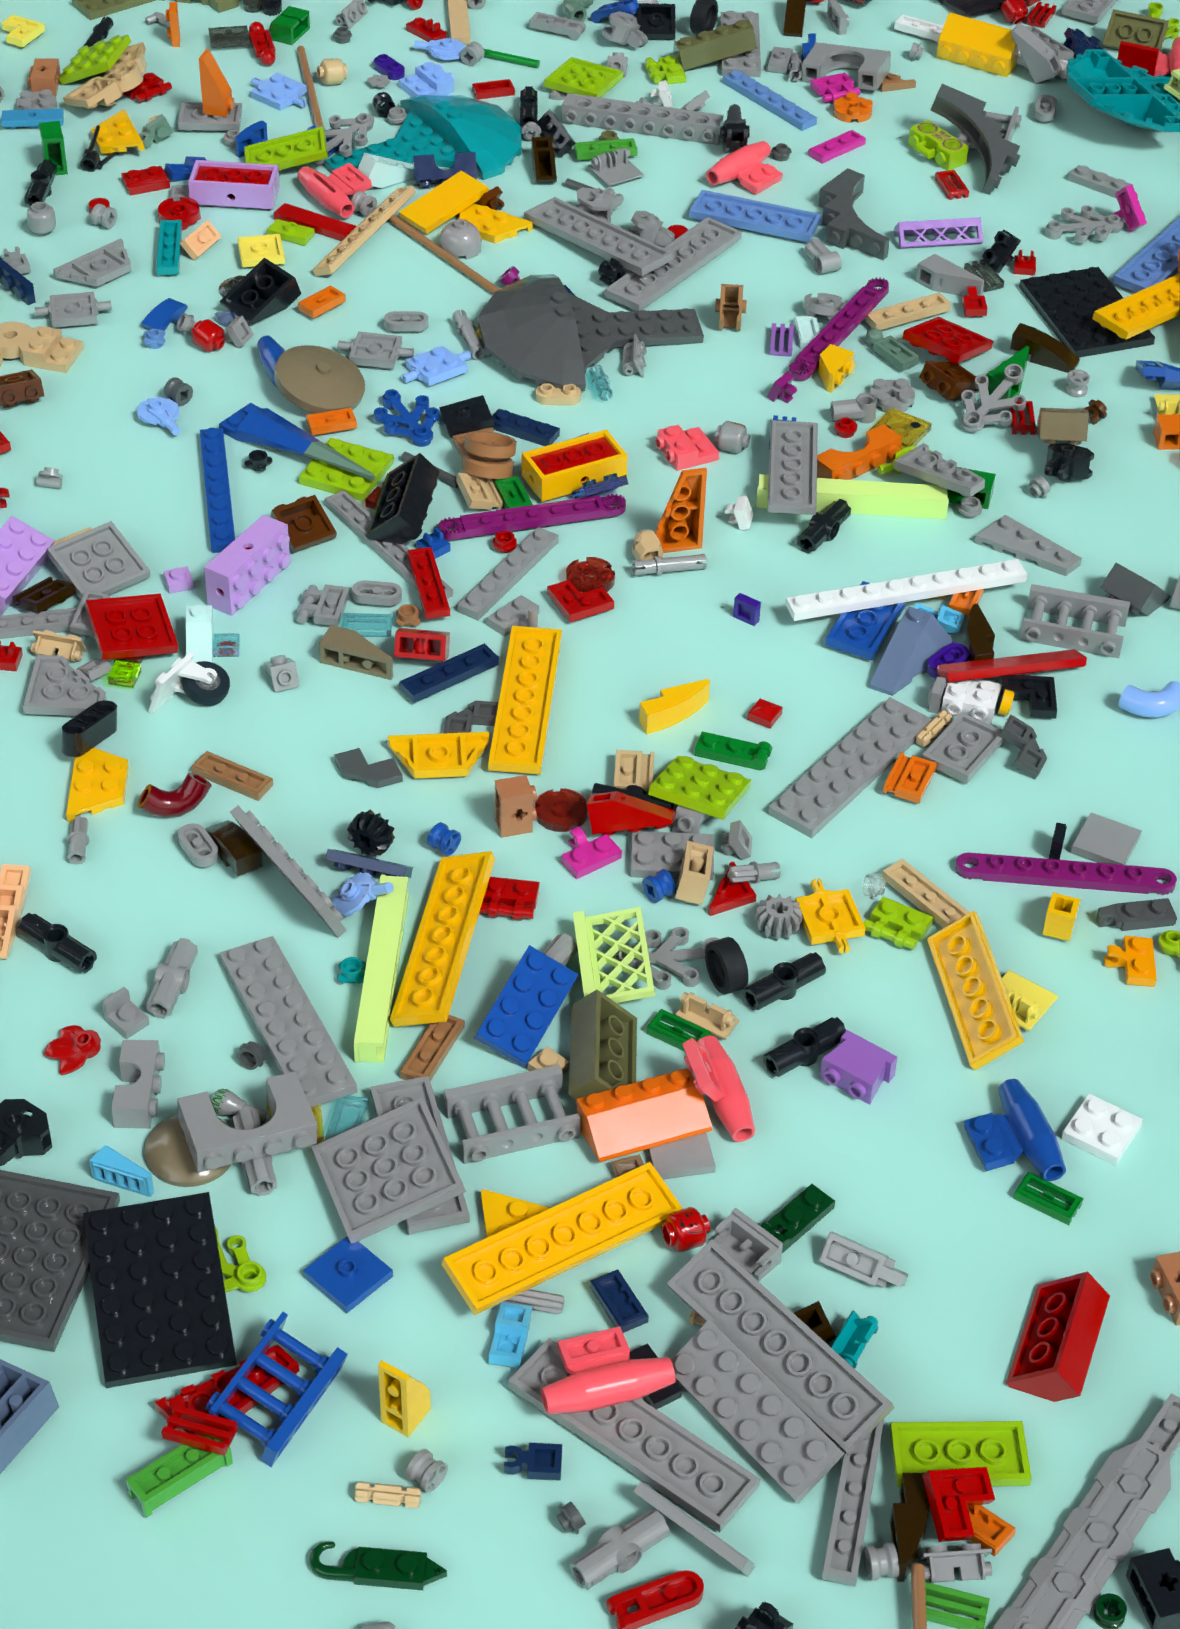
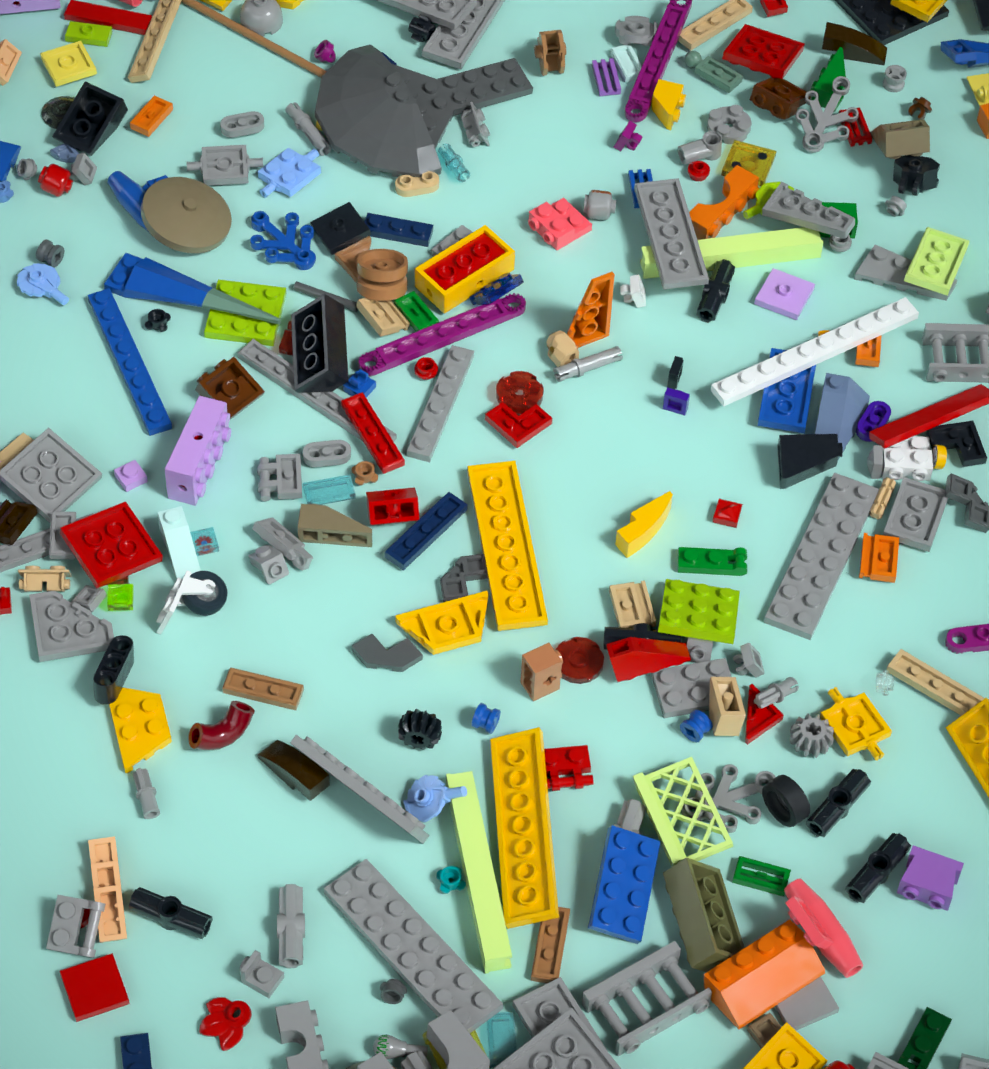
camera: 15 degrees left, 10 degrees up
(198, 845) = (263, 776): light grey plate -> none
(303, 656) = (284, 541): none -> light grey hinge
(331, 421) = (212, 259): orange plate -> none
(367, 864) = (426, 761): dark blue plate -> none
(515, 613) = (464, 450): light grey plate -> none
(548, 1058) = (658, 936): tan plate -> none
(591, 855) = (620, 704): dark pink plate -> none
(712, 1017) = (782, 855): tan hinge -> none
(756, 584) = (675, 372): none -> black tile
(863, 676) = (806, 456): none -> black slope
(895, 541) = (784, 294): none -> lavender plate
(898, 923) = (916, 711): lime plate -> none
(948, 618) = (857, 371): medium azure slope -> none
(979, 636) = (894, 390): dark brown slope -> none
(1064, 537) = (937, 261): none -> yellowish green tile

